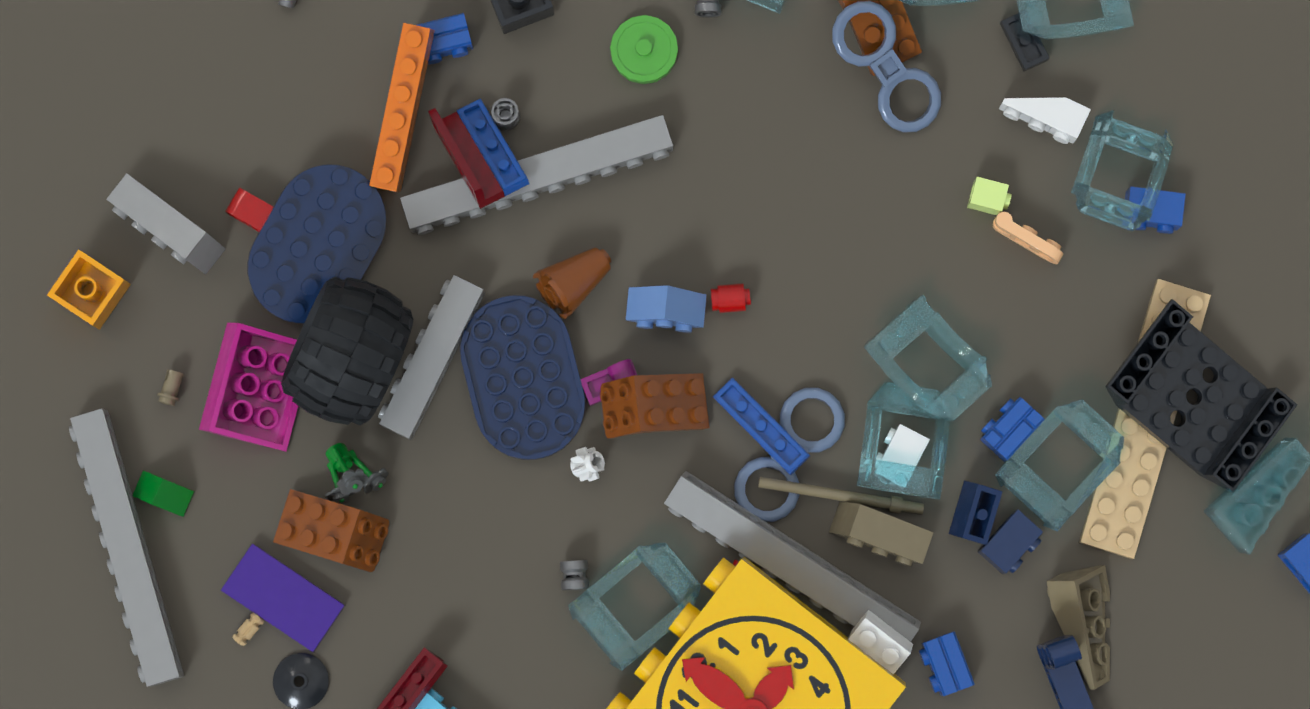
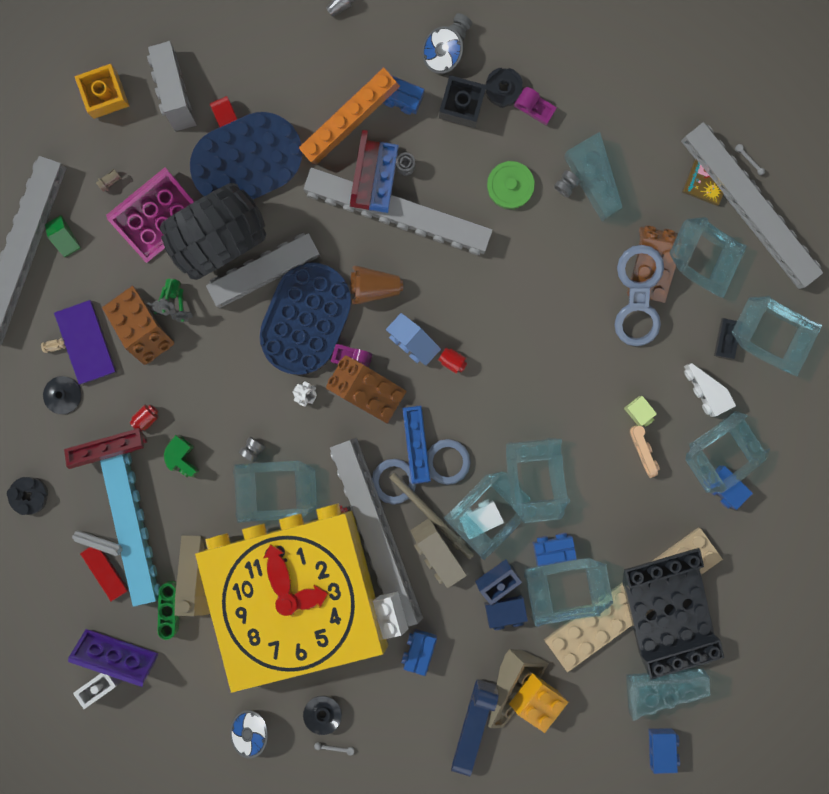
camera: 40 degrees right, 5 degrees up
(420, 632) = (144, 417): none -> red brick
(489, 649) = (175, 456): none -> green brick
(1127, 616) = (538, 703): none -> light orange brick

